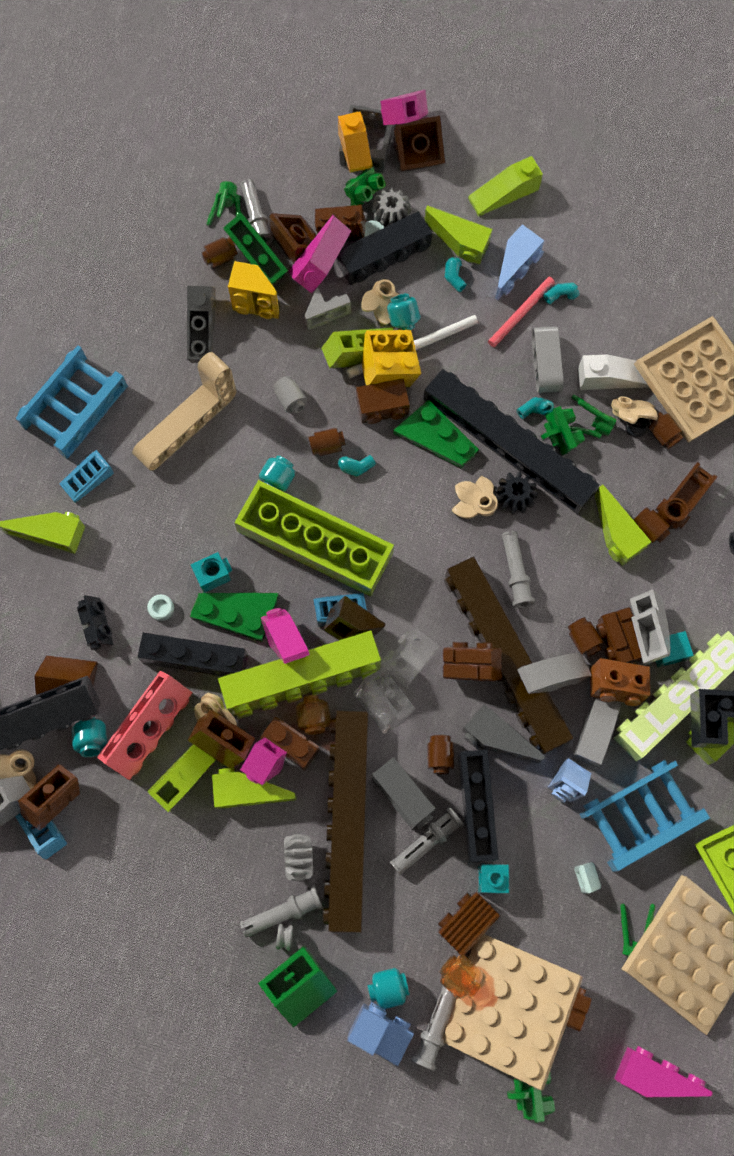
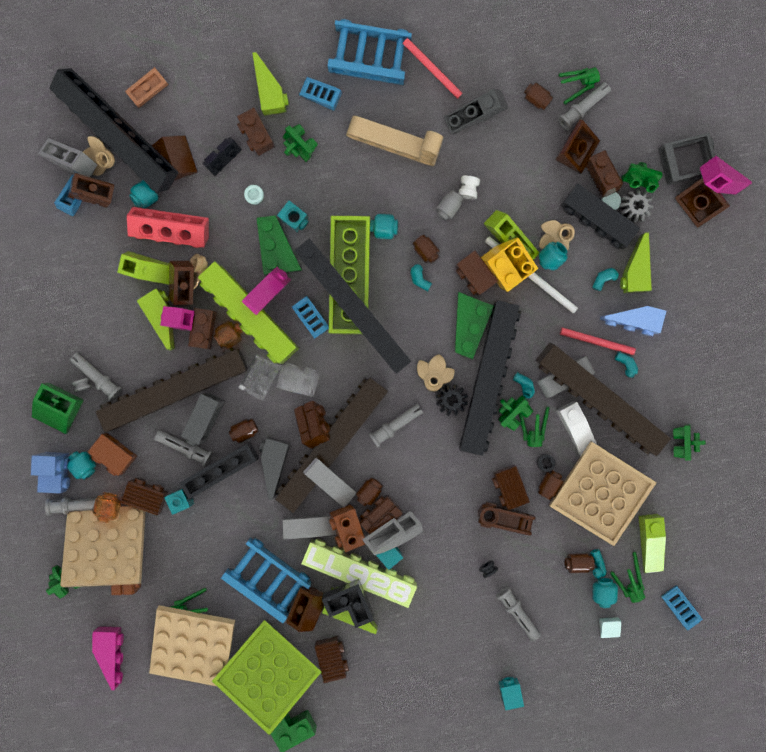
camera: 65 degrees right, 15 degrees up
(89, 567) = (258, 136): none -> reddish brown brick
(127, 344) = (432, 68): none -> coral bar
(130, 527) = (296, 145): none -> green hips
(191, 655) = (229, 234): black brick -> none
(252, 291) = (513, 135): yellow slope -> none
(255, 248) = (548, 123): green brick -> none
(280, 365) = (469, 186): none -> white wheel
(298, 857) = (131, 370): light grey gear -> none
(320, 255) = (564, 172): dark pink slope -> none
(324, 312) = (524, 195): light grey slope -> none
(350, 619) = (300, 329): dark brown slope -> none
(354, 141) = (673, 152): light orange slope -> none
(355, 541) = (352, 306): none -> black brick
(394, 938) = (112, 454): none -> dark orange brick
(509, 185) = (696, 284): lime slope -> none
(570, 782) = (262, 524): light blue slope -> none
(587, 877) = (211, 560): light aqua slope -> none
(591, 328) = (603, 399): none -> dark brown brick
(620, 531) = (457, 484): lime slope -> none
(631, 410) = (554, 455): tan plate -> none
(650, 474) = (511, 487): none -> reddish brown brick
(652, 525) = (472, 504): reddish brown brick -> none
(687, 272) = (685, 433): none -> green hips
(703, 781) = (306, 609): none -> reddish brown brick

